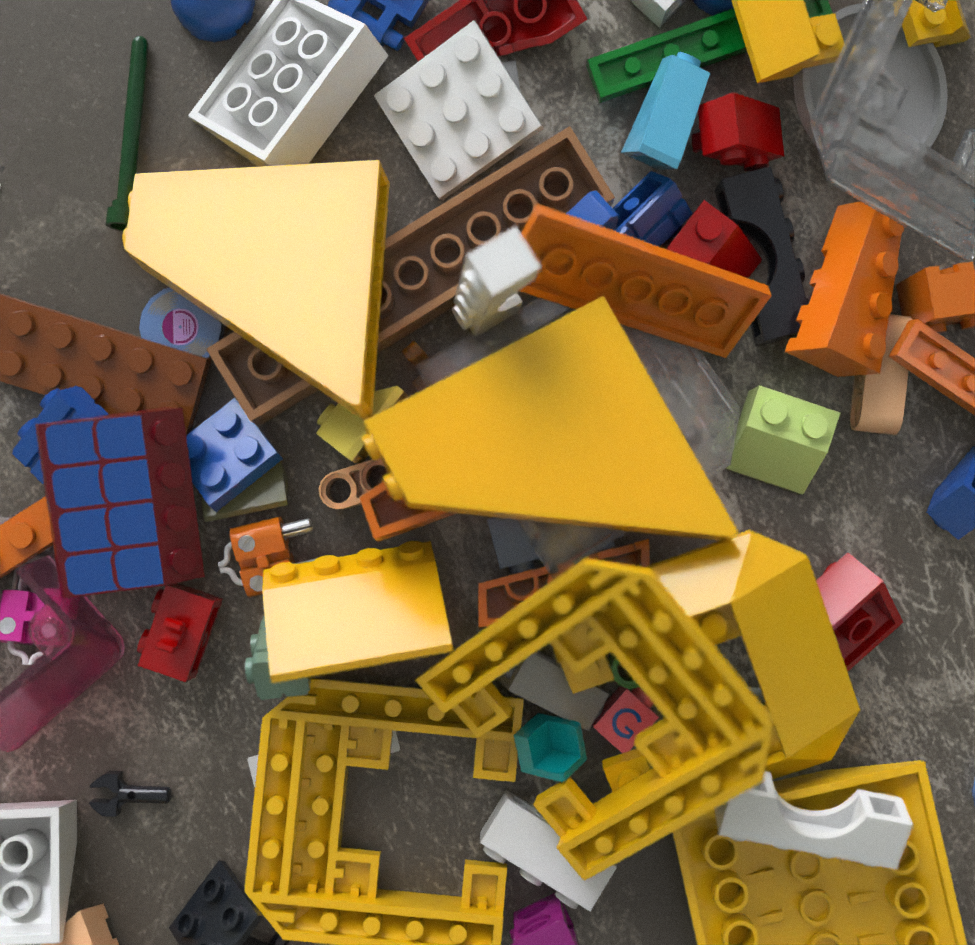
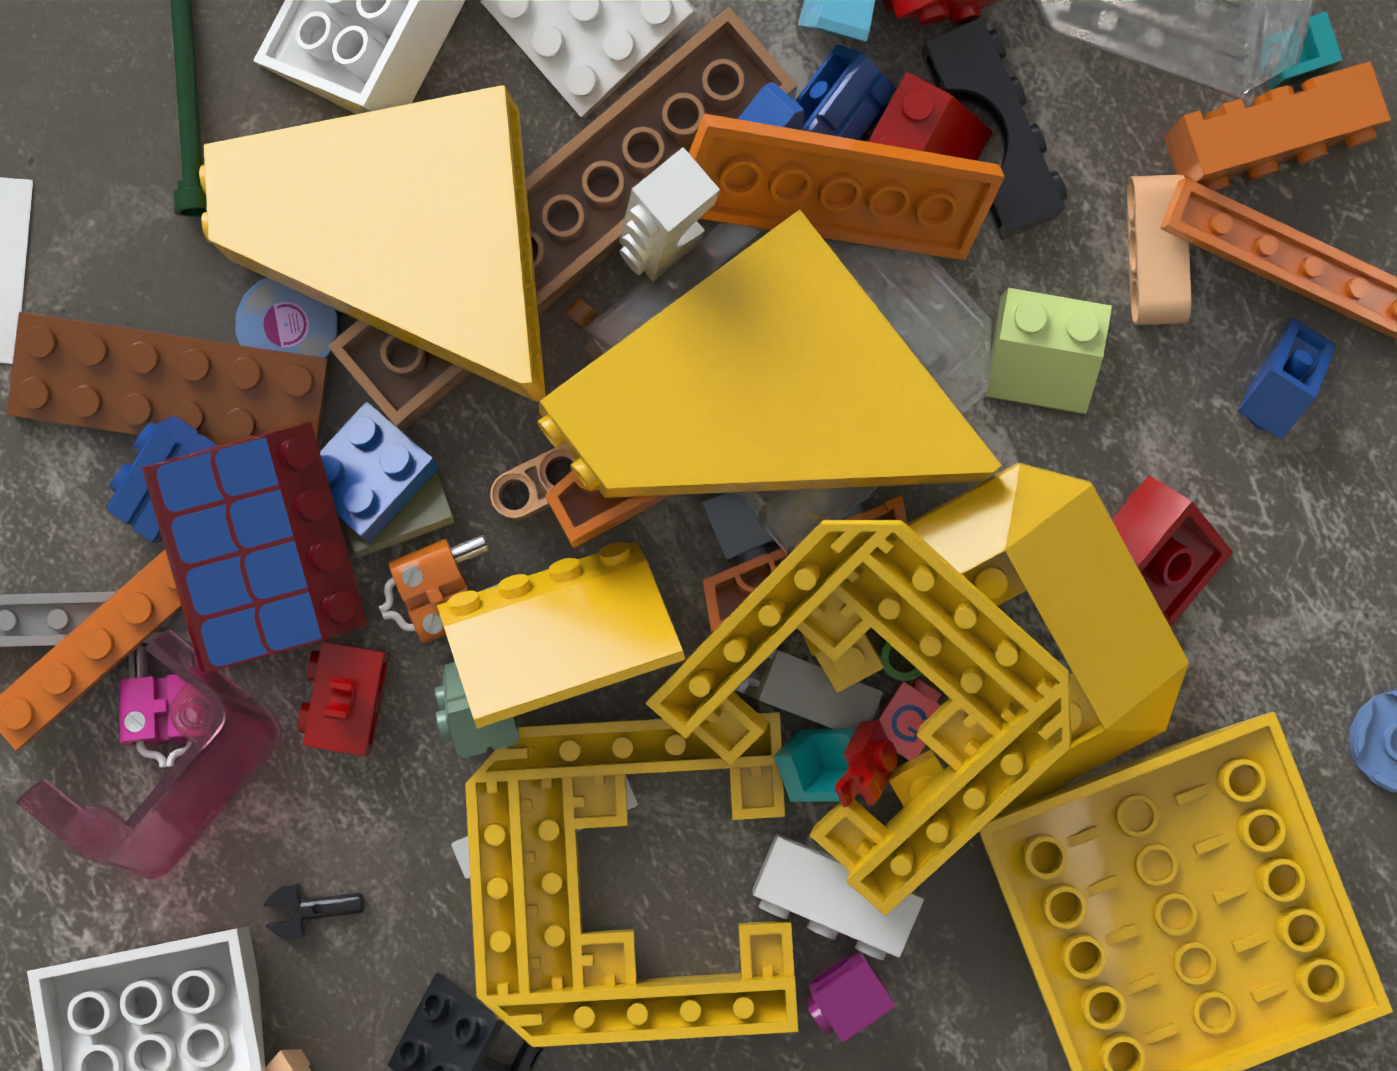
camera: 10 degrees left, 0 degrees up
(344, 429) = (514, 418): light yellow slope -> none
(590, 753) = (870, 764): none -> red plate
(852, 294) = (1104, 161): orange wedge -> none
(862, 829) = (1208, 800): white arch -> none

